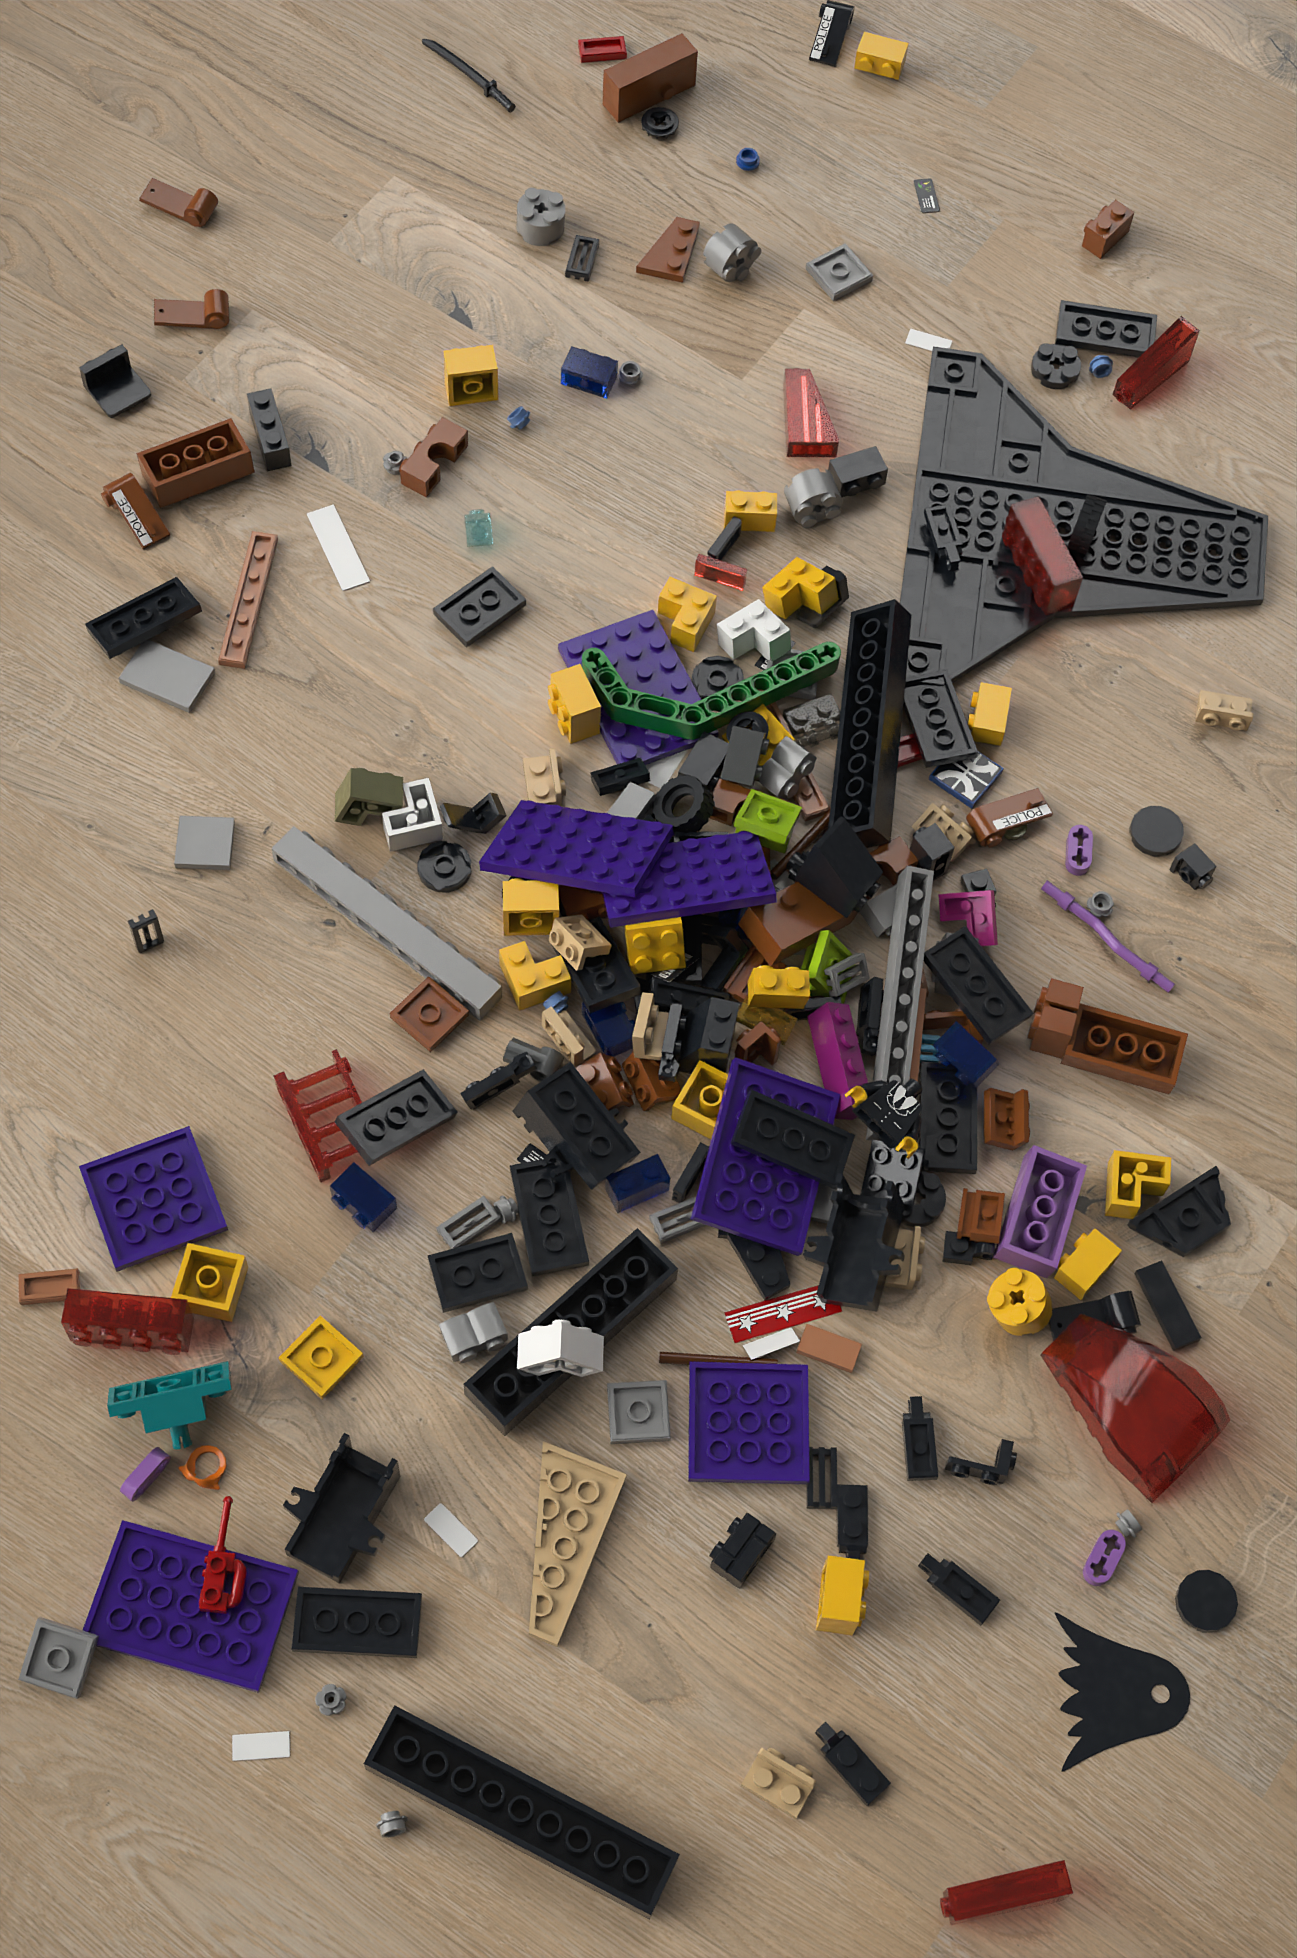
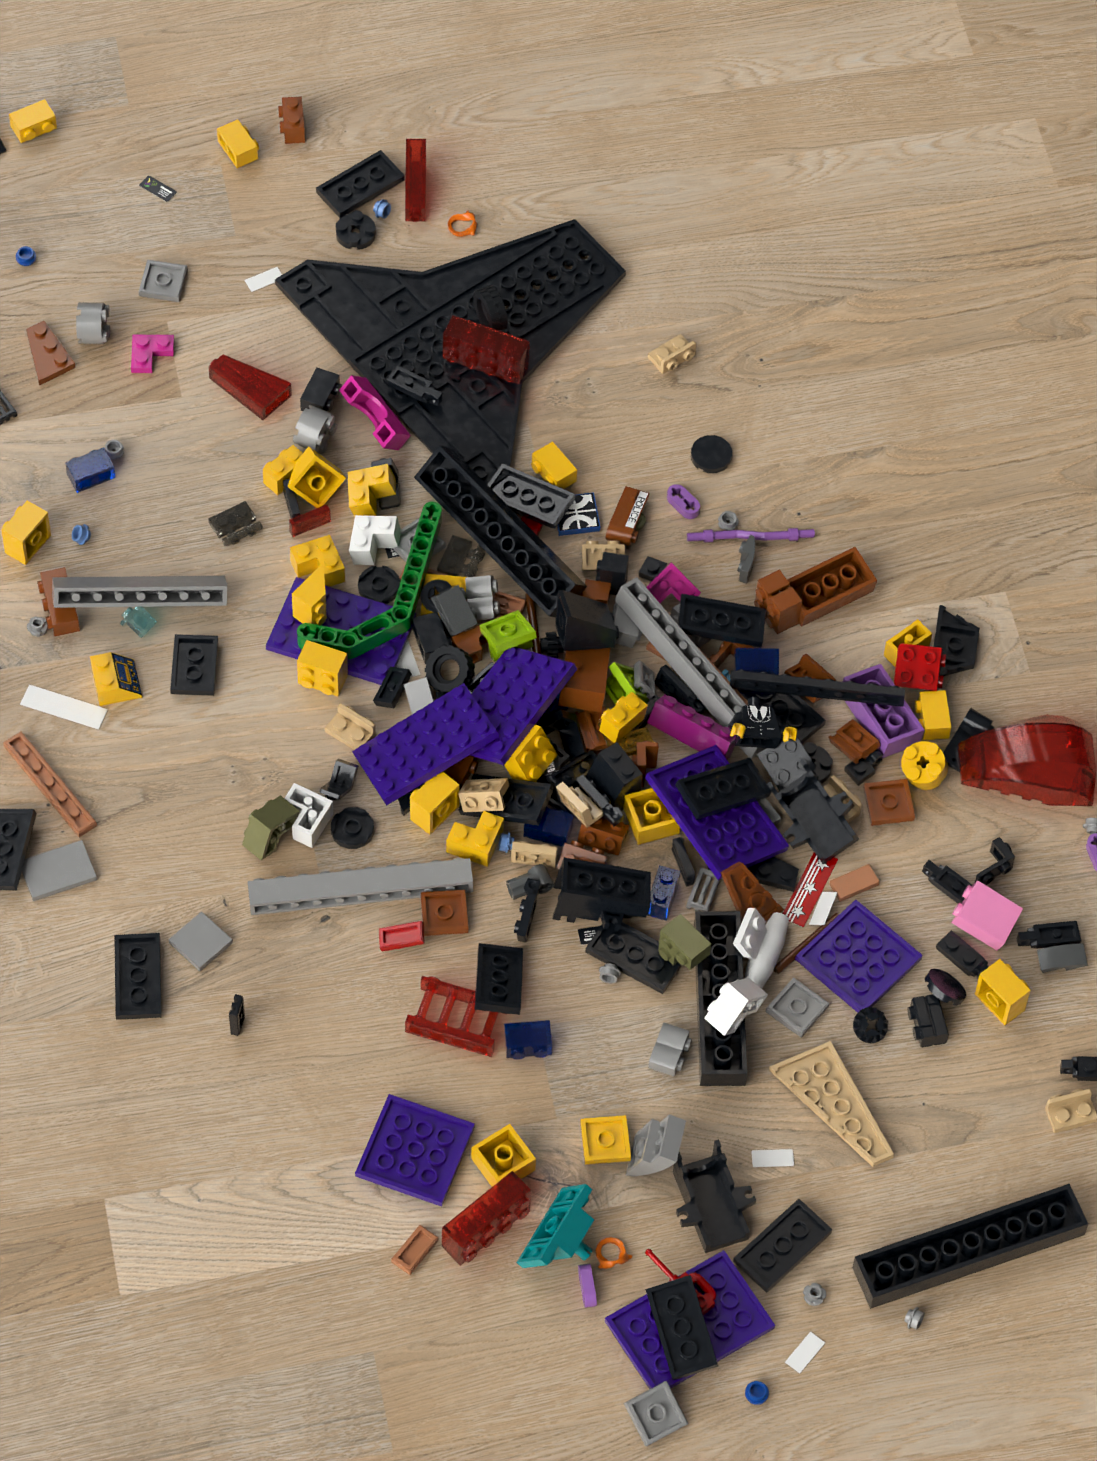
camera: 45 degrees left, 5 degrees down
(118, 822) = (137, 976): none -> black plate
(163, 1603) = (681, 1327): none -> black plate
(170, 1736) = (756, 1392): none -> blue plate
(344, 1410) = (656, 1146): none -> light grey slope
(368, 999) = (401, 936): none -> tile
(401, 558) = (115, 678): none -> yellow slope
(477, 1272) = (634, 1018): black plate -> none
(478, 1230) = (595, 1017): light grey tile -> none
(500, 502) = (139, 591): none -> light grey brick
(584, 1245) = (683, 943): none -> olive brick
(632, 635) = (310, 599): none -> yellow slope
(659, 516) = (233, 519): none -> clear smoke plate
(663, 1319) = (761, 943): none -> white plate
(693, 1487) = (860, 1025): none -> black gear
(706, 1264) = (748, 892): none -> dark orange wing
(761, 314) = (146, 347): none -> dark pink plate
(763, 538) = (315, 478): none -> yellow slope
(793, 1534) = (945, 986): none -> black tile
(821, 1452) = (942, 955): black tile -> none
(892, 505) = (363, 396): none -> dark pink arch
(913, 1504) = (986, 915): none -> bright pink brick
(945, 1621) = (1062, 956): none -> dark grey slope
(949, 1304) = (889, 802): none -> dark orange plate
(998, 1138) = (817, 688): none -> black plate
(1034, 209) = (237, 143): none -> yellow brick
(1083, 950) = (747, 552): none -> dark grey slope
(1120, 1205) = (919, 667): none -> red bracket
(1167, 1305) = (993, 700): black tile -> none
(1169, 433) = (464, 217): none -> orange piece
(1194, 867) = (755, 455): black brick -> none

